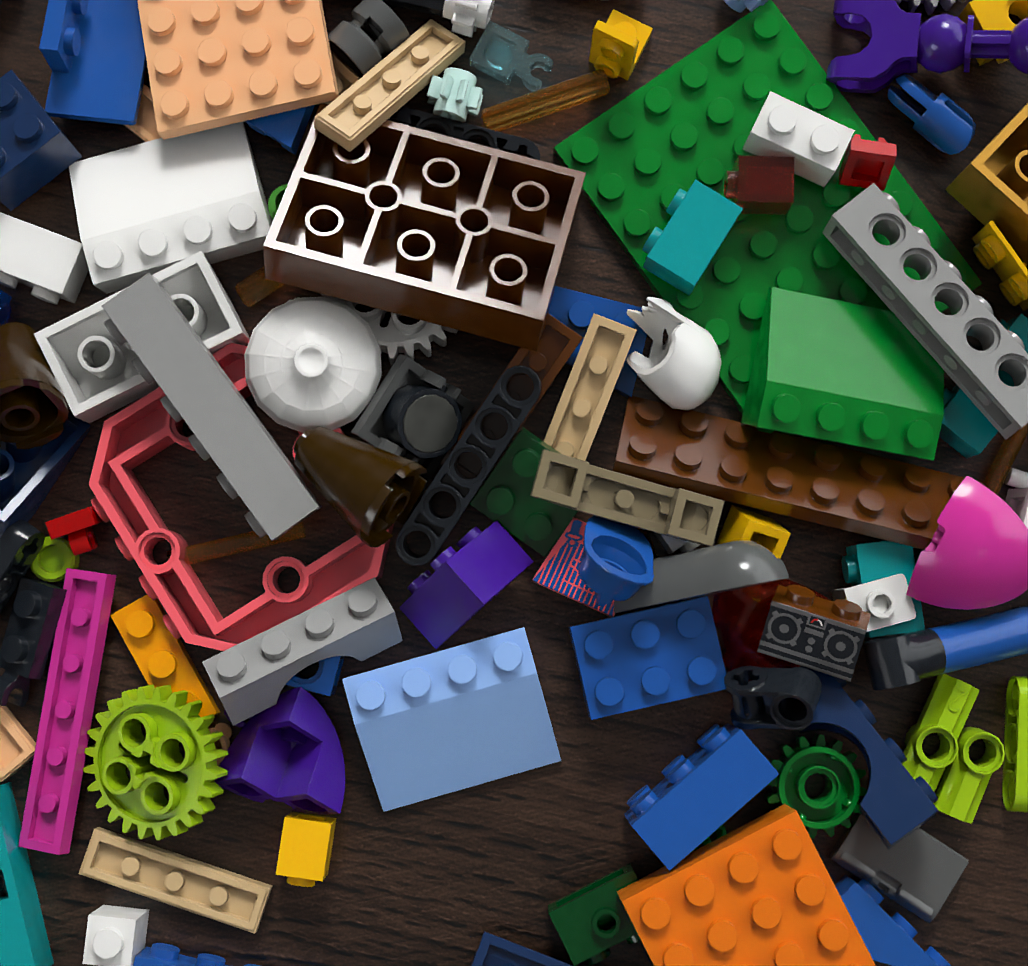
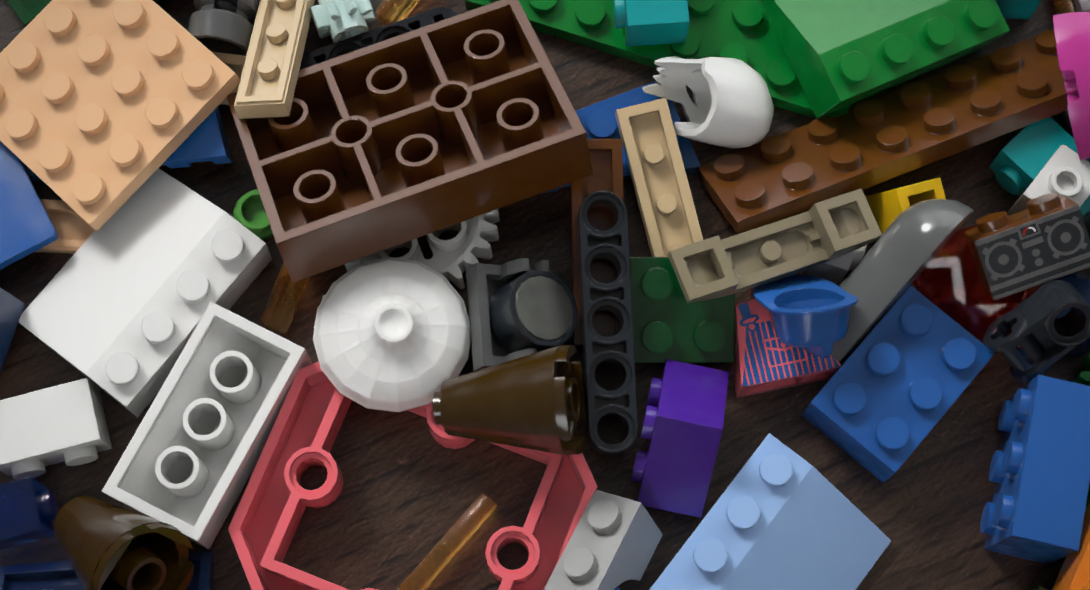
camera: 35 degrees left, 10 degrees down
(210, 406) = (329, 434): light grey brick -> none

